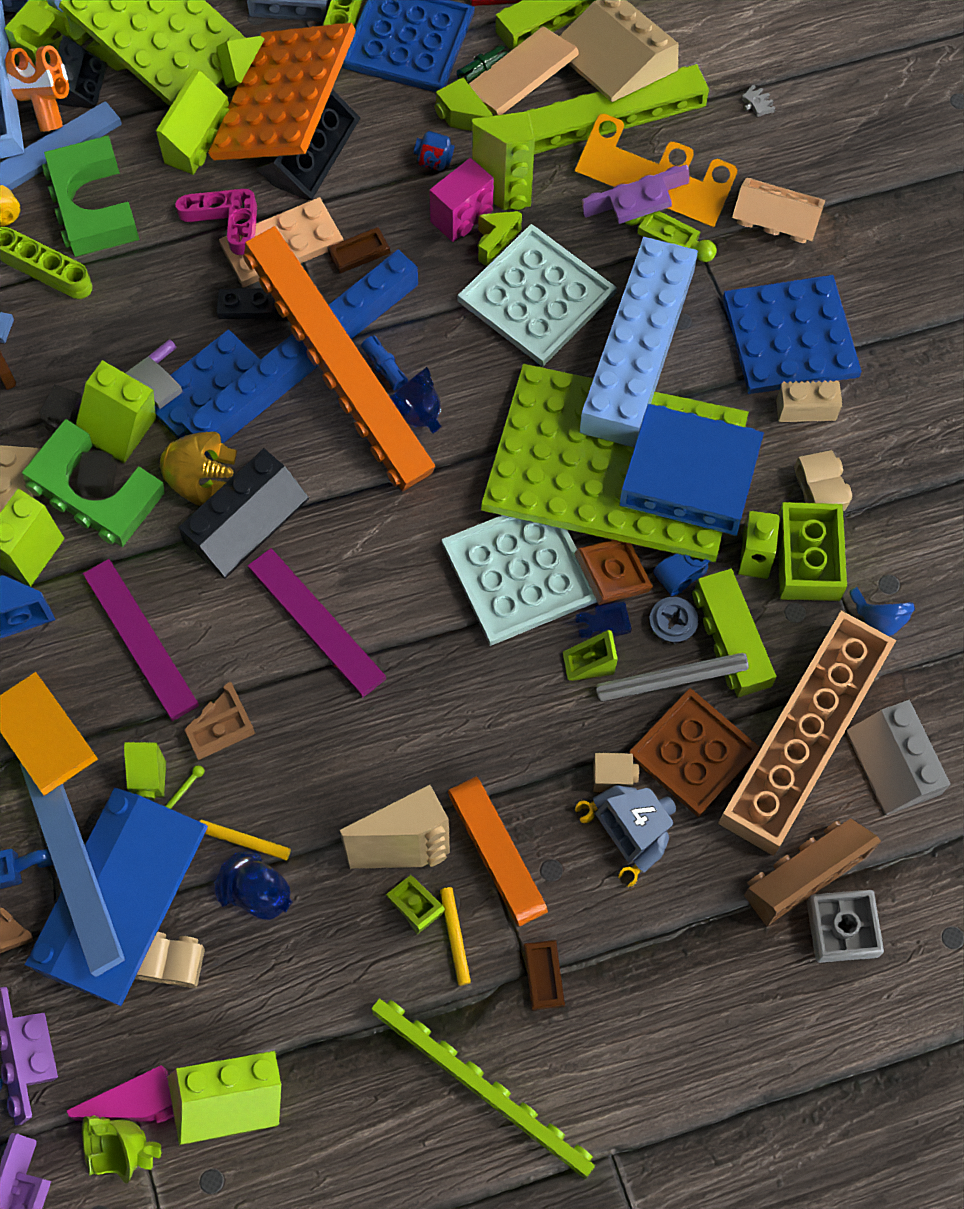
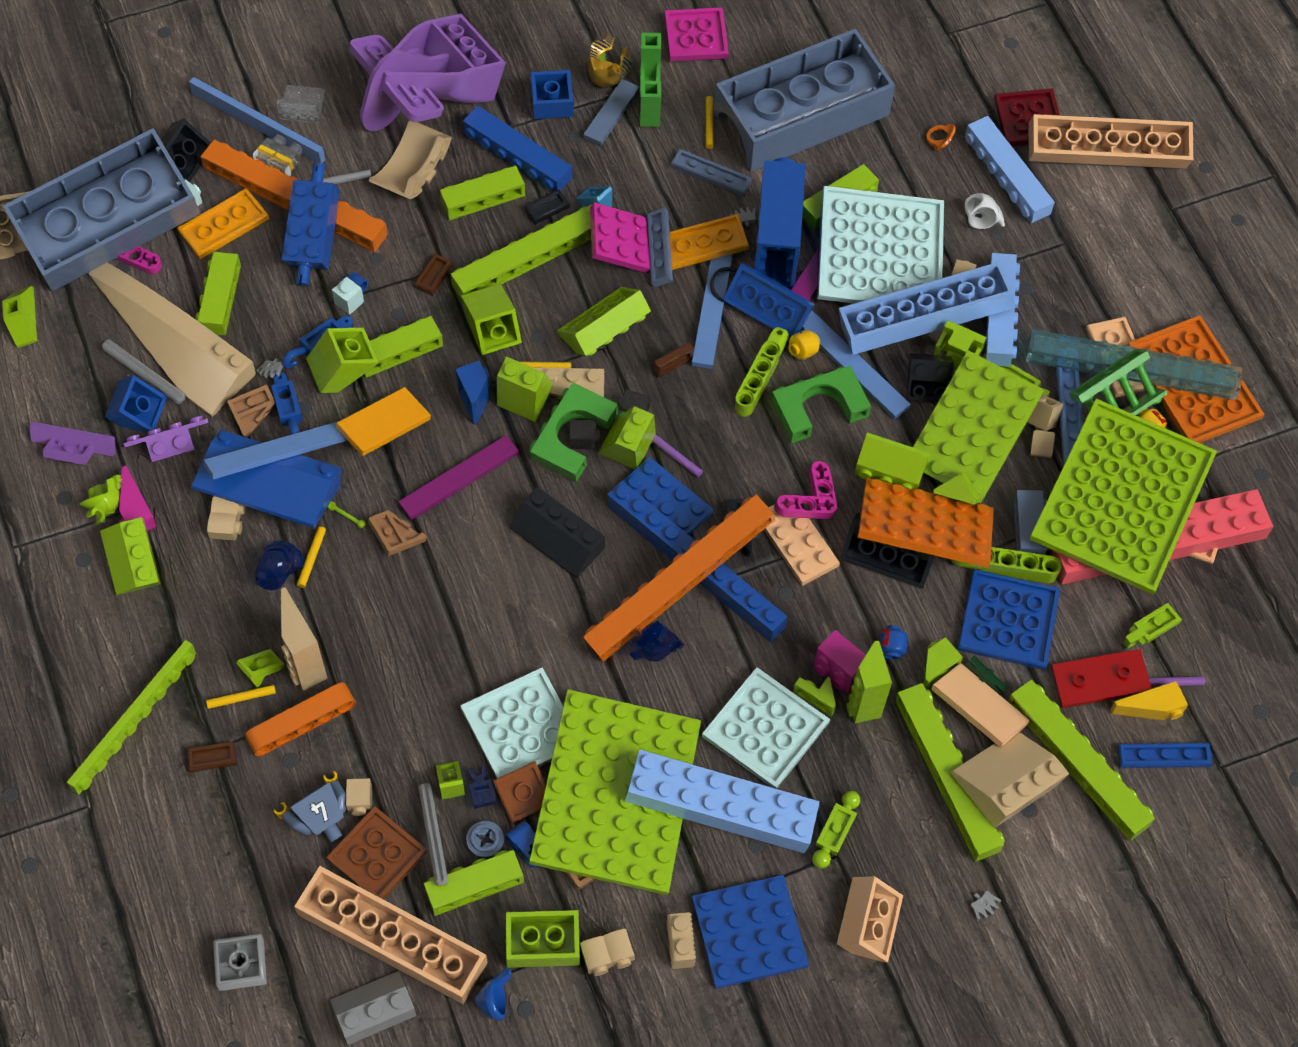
camera: 85 degrees right, 5 degrees down
(39, 83) = (904, 352): orange connector -> none
(145, 769) = (355, 487): lime slope -> none
(156, 378) = (659, 460): light grey slope -> none
(185, 464) = (589, 483): pearl gold piece -> none
(317, 622) = (475, 590): magenta tile -> none
(359, 250) = (796, 596): reddish brown tile -> none
(384, 362) = (693, 619): blue pin -> none
(616, 166) = (885, 819): light orange piece -> none
(638, 197) = (860, 801): medium lavender bracket -> none
(691, 469) = (602, 836): blue panel -> none
(758, 537) = (549, 896): lime torso -> none
(810, 870) = (281, 935): medium nougat slope -> none

